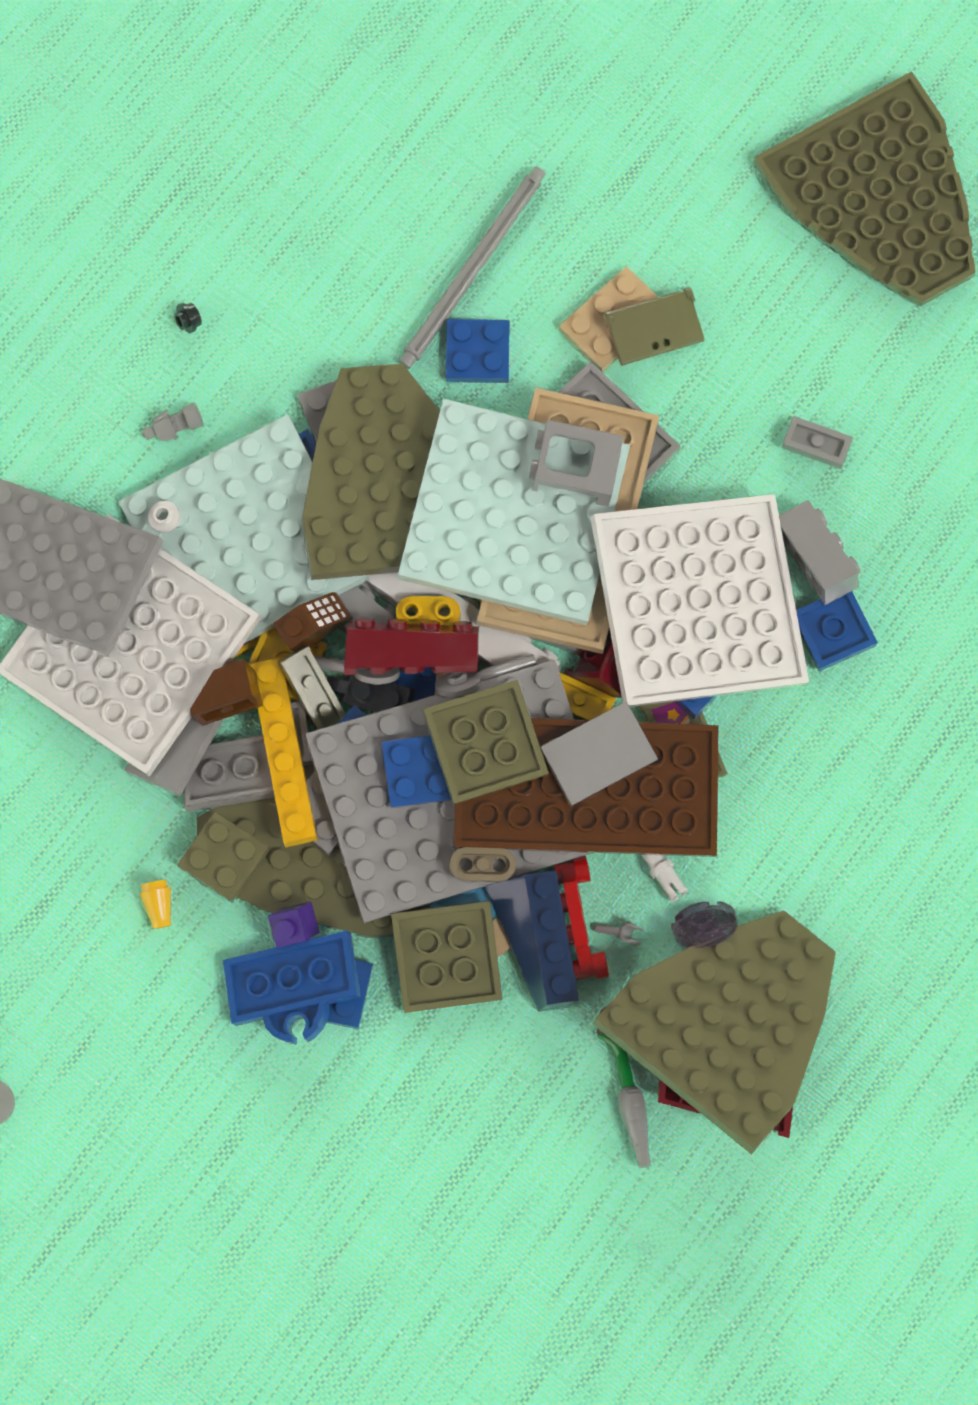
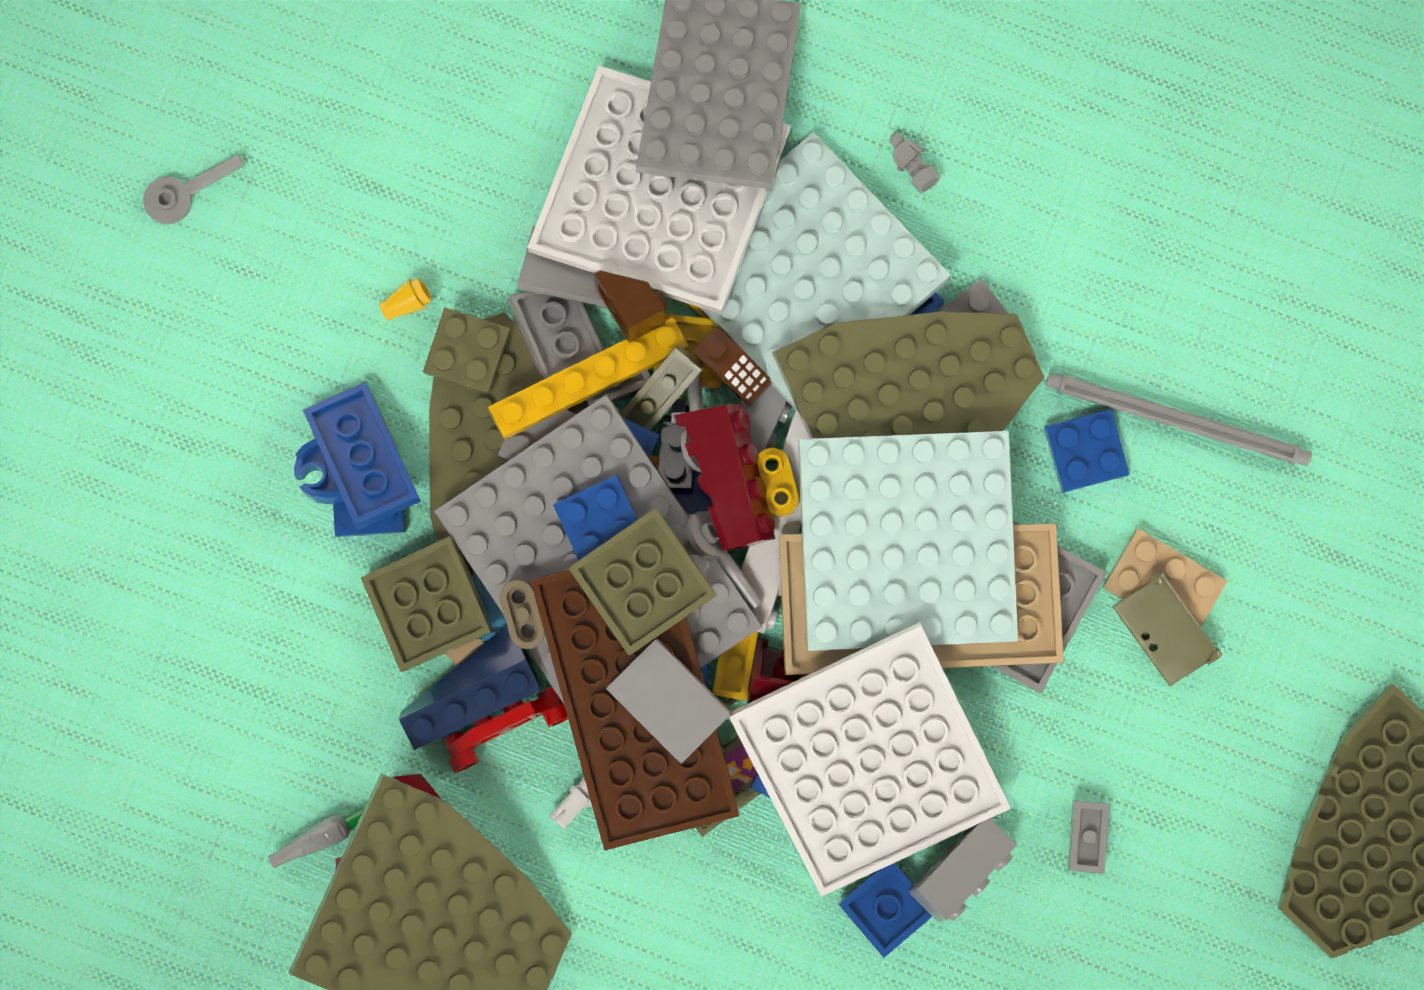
camera: 70 degrees right, 10 degrees up
(170, 522) = (799, 191): white plate -> none
(187, 317) = (1032, 140): plate -> none
(293, 924) = (415, 441): dark purple brick -> none
(603, 465) = (975, 621): light grey window -> none
(623, 932) = (504, 775): light grey hand -> none
(704, 924) = (530, 857): clear purple tile -> none

